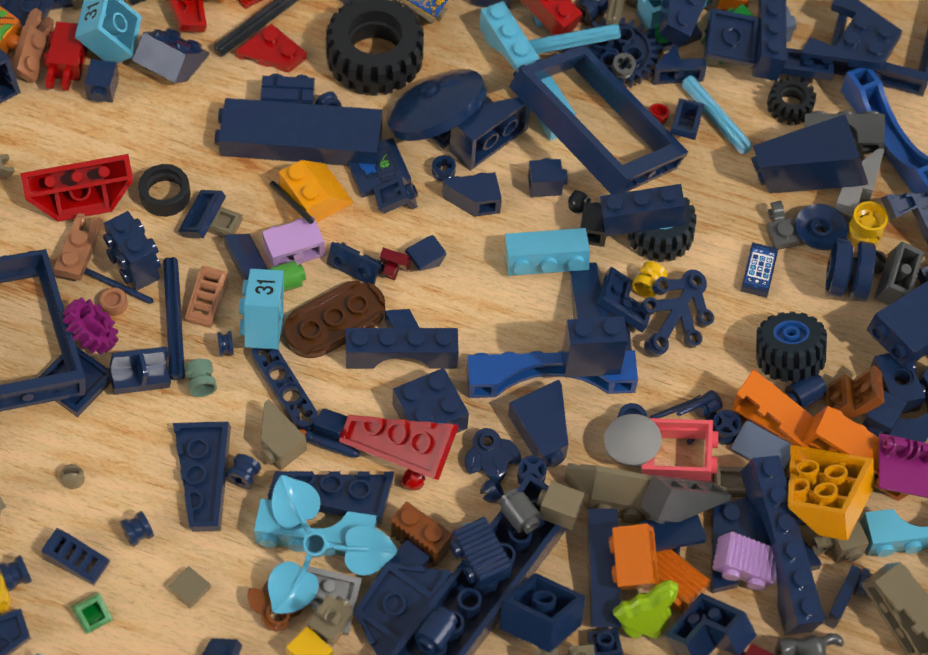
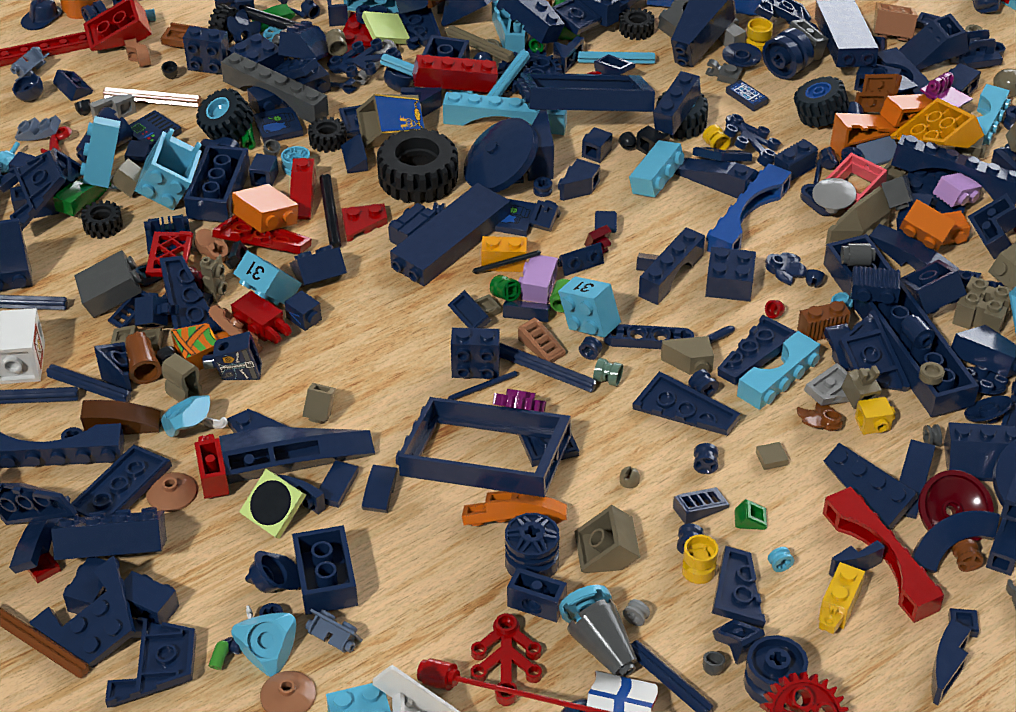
camera: 50 degrees left, 15 degrees down
(77, 249) = (435, 384): nougat hinge -> none
(79, 187) = (390, 356): red wedge -> none
(113, 301) = (497, 387): nougat tile -> none
(139, 370) = (577, 398): dark blue panel -> none
(160, 173) = (431, 334): black tyre -> none
(253, 222) = (505, 288): none -> green wheel
(292, 586) = (818, 346): medium azure plant -> none
(323, 322) = (624, 285): reddish brown tile -> none
(329, 424) = (701, 327): dark blue slope -> none
(407, 443) = (754, 290): red wing -> none
(532, 465) = (815, 254): dark blue wheel -> none
(542, 422) = (786, 231): dark blue slope -> none
(560, 504) = (868, 231): dark tan brick -> none
(594, 346) = (764, 165): dark blue brick -> none
(620, 59) = (549, 66): dark grey bush -> none
(647, 611) = (963, 242): lime rock -> none
(670, 374) = (797, 158): none -> dark blue brick

